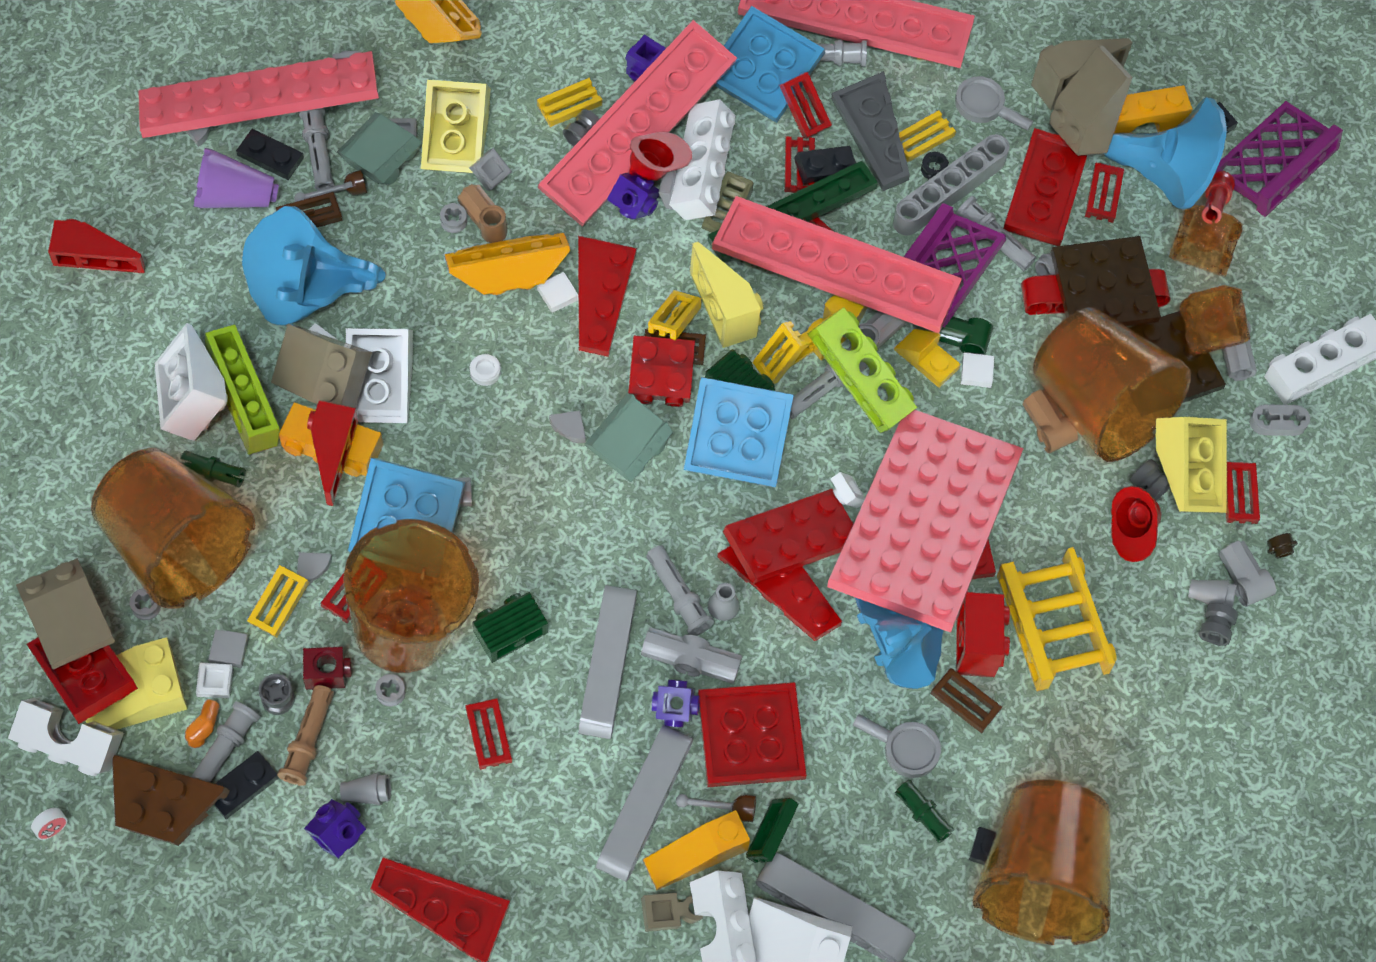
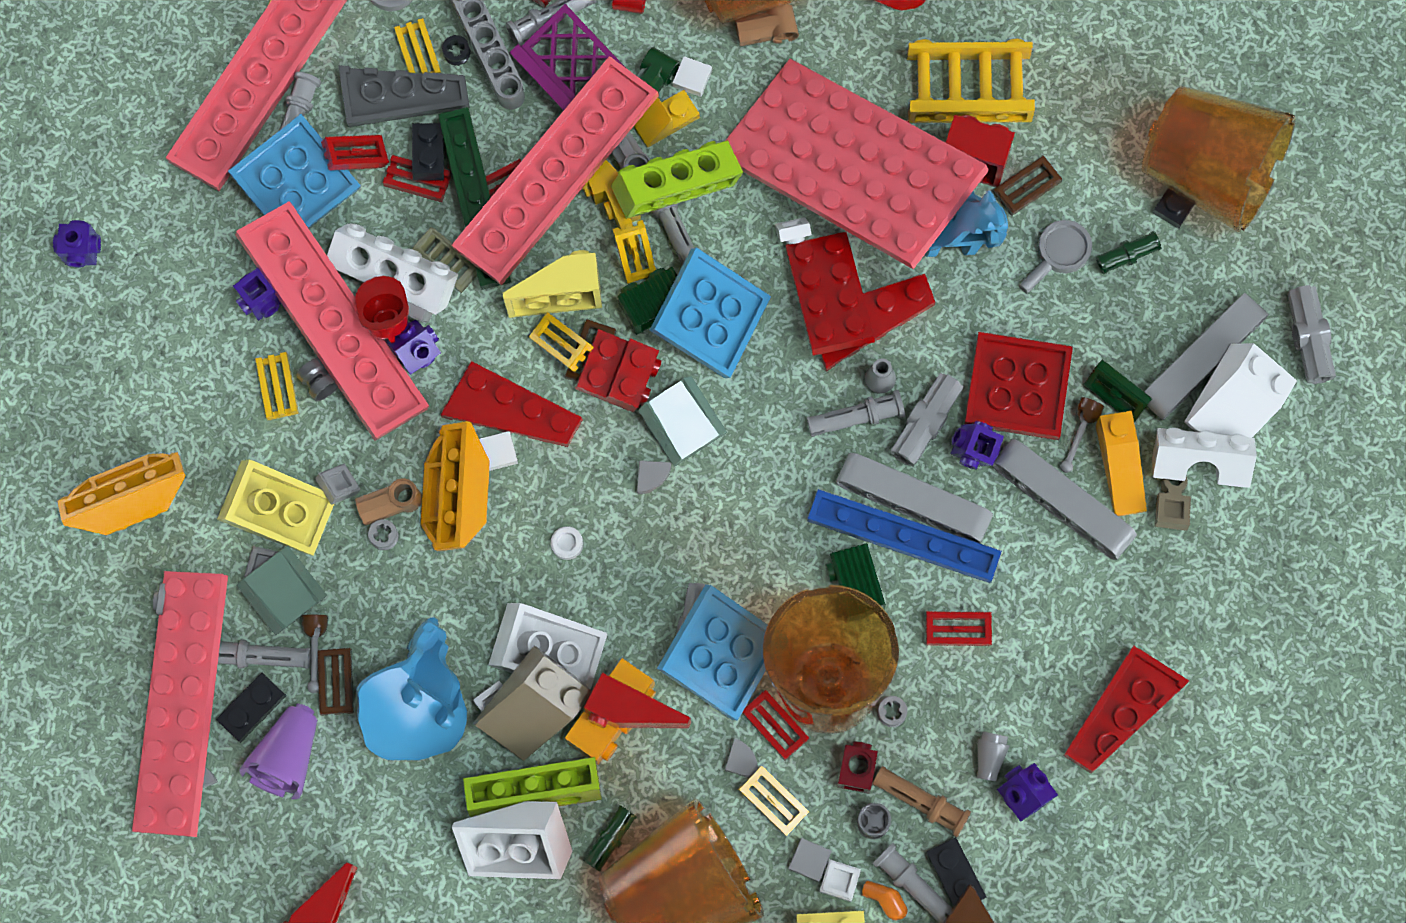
camera: 65 degrees left, 10 degrees up
(567, 662) = (904, 536): none -> blue plate

